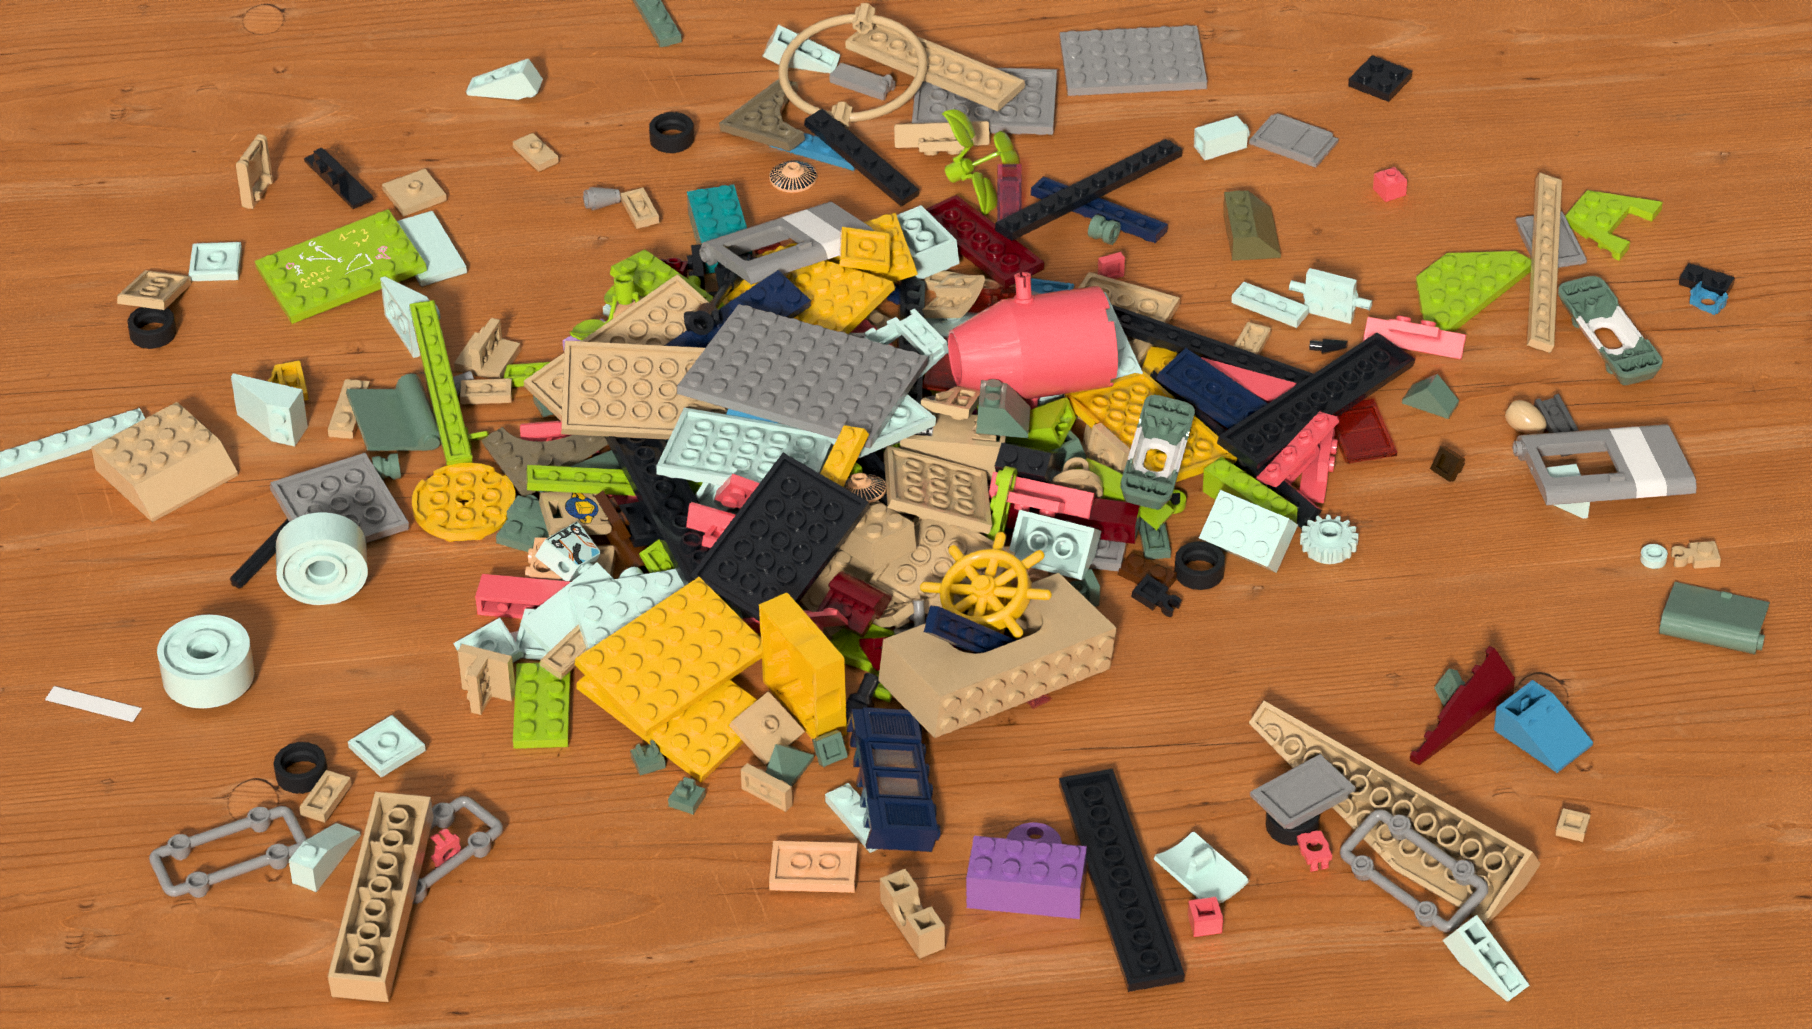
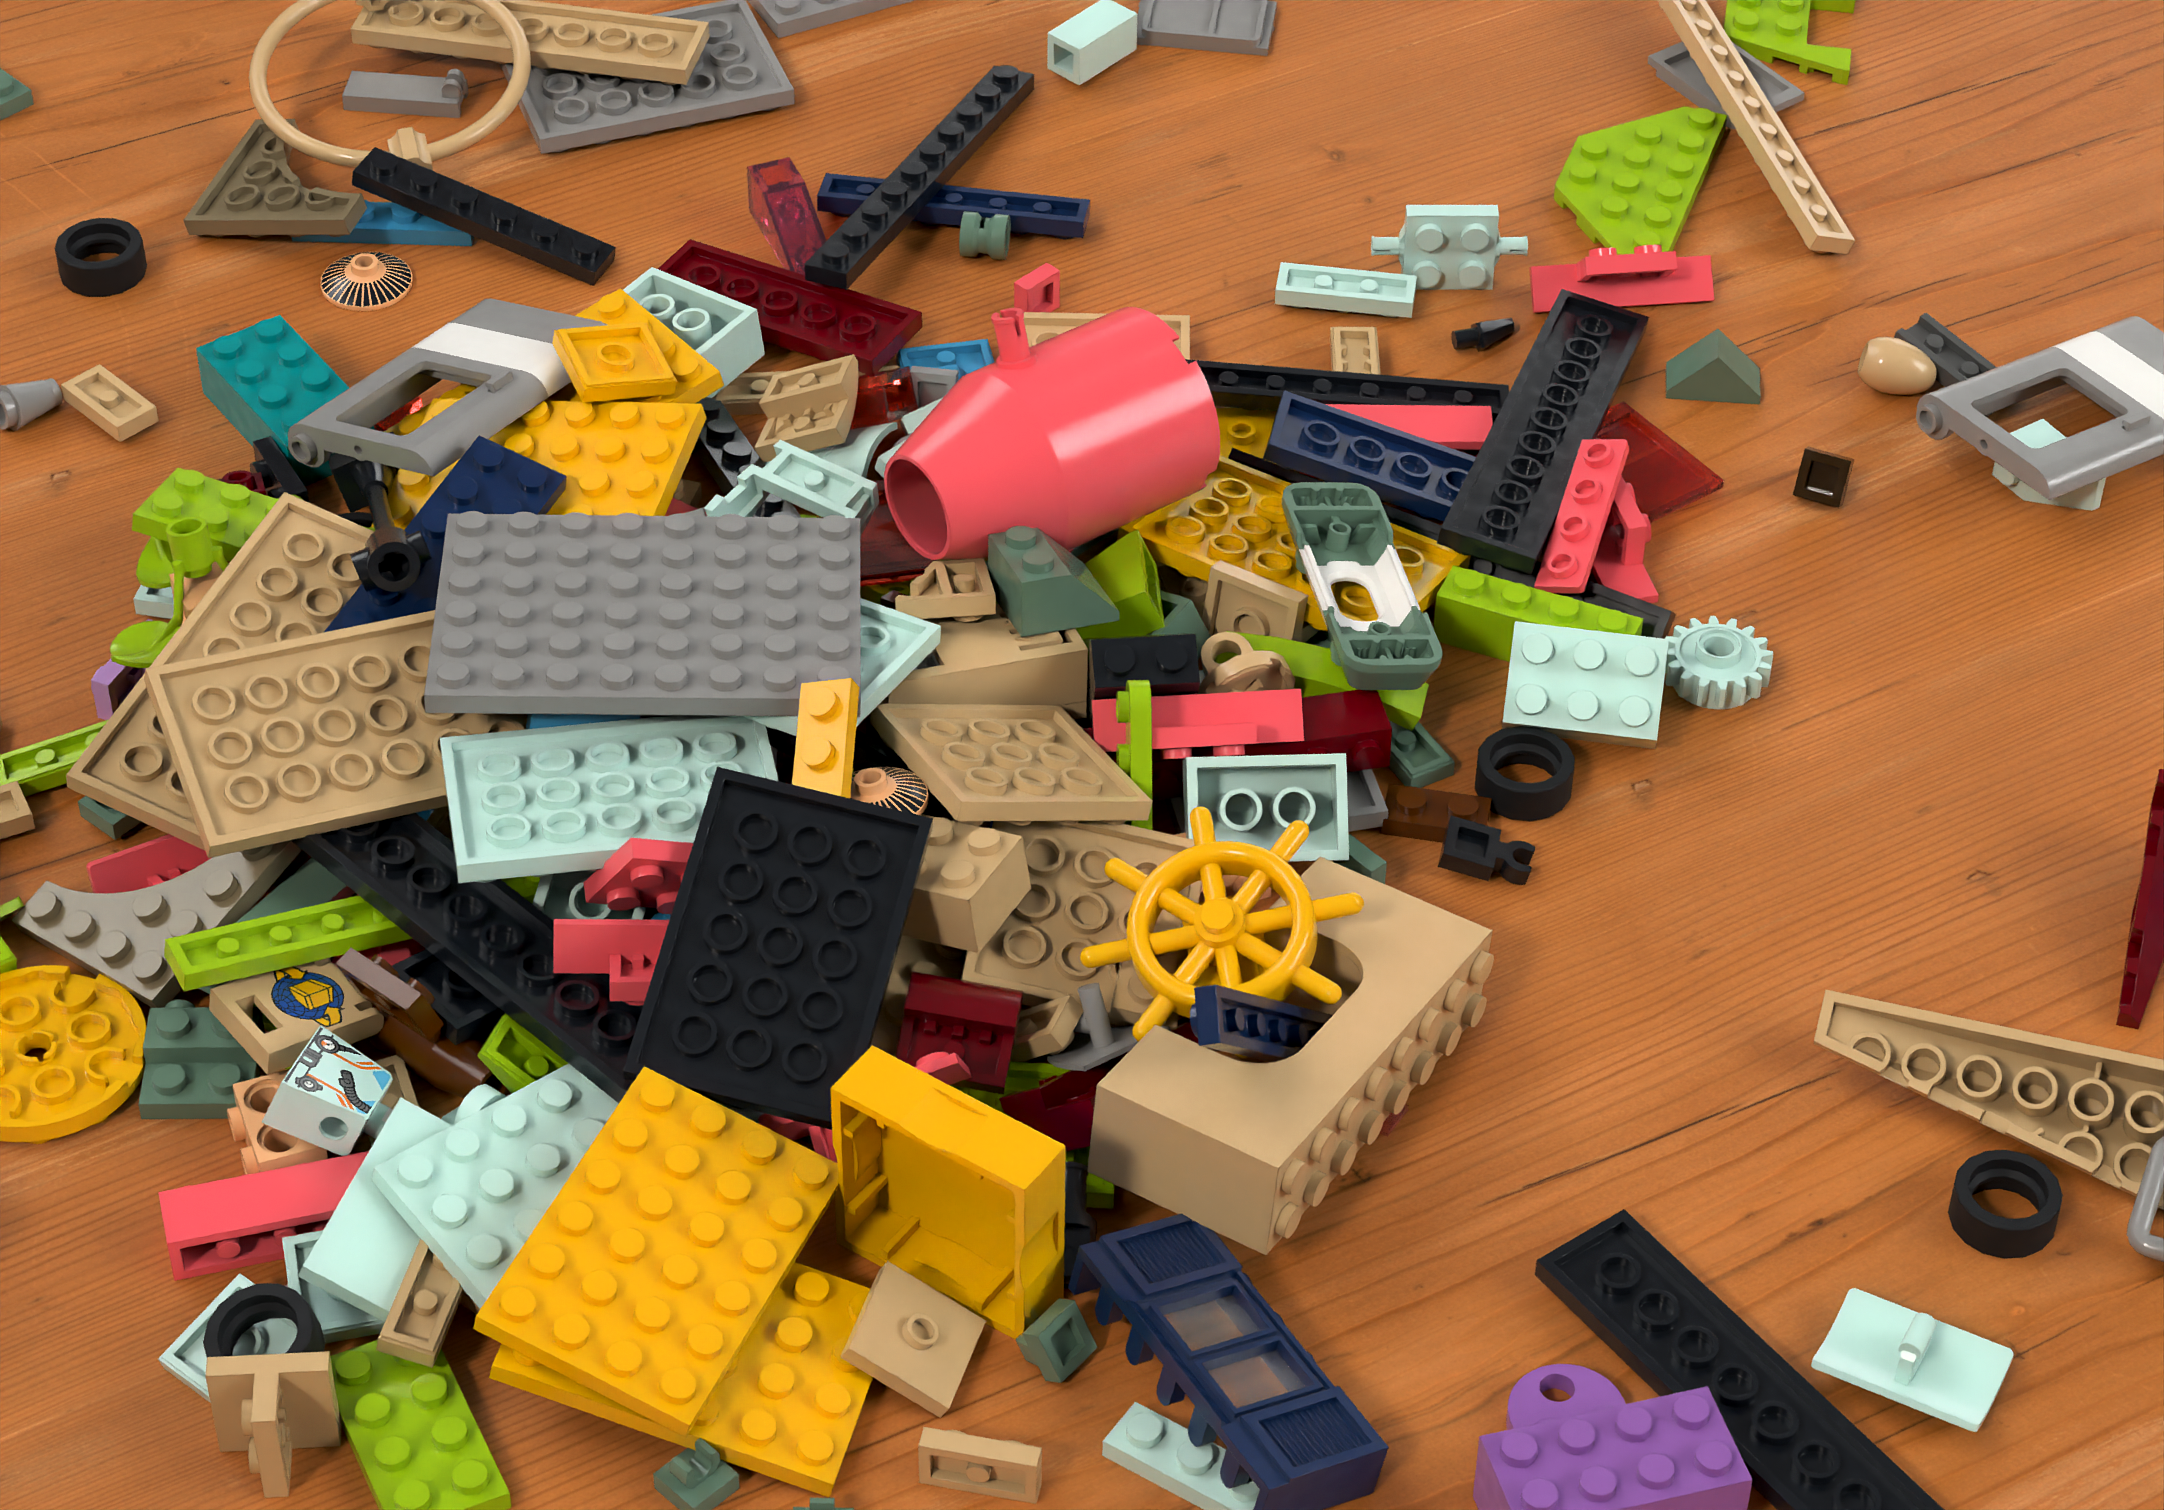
camera: 25 degrees left, 0 degrees up
(497, 631) = (256, 1305): none -> black tyre
(788, 763) = (993, 1399): sand green slope -> none
(806, 57) = (290, 73): light aqua slope -> none
(936, 136) = (604, 149): tan bracket -> none
(962, 167) = (677, 191): lime plant -> none
(1205, 916) = (1988, 1455): coral plate -> none
(1249, 227) = (1224, 174): olive slope -> none
(1303, 792) = (2009, 1145): light grey piece -> none
(1311, 857) = (2103, 1269): coral piece -> none
(1390, 184) = (1412, 51): coral plate -> none
(1448, 685) = (2106, 869): sand green tile -> none
(1596, 307) = (1880, 162): sand green piece -> none
(1699, 294) = (2048, 108): dark azure piece -> none
(1711, 280) = (2007, 81): black plate -> none

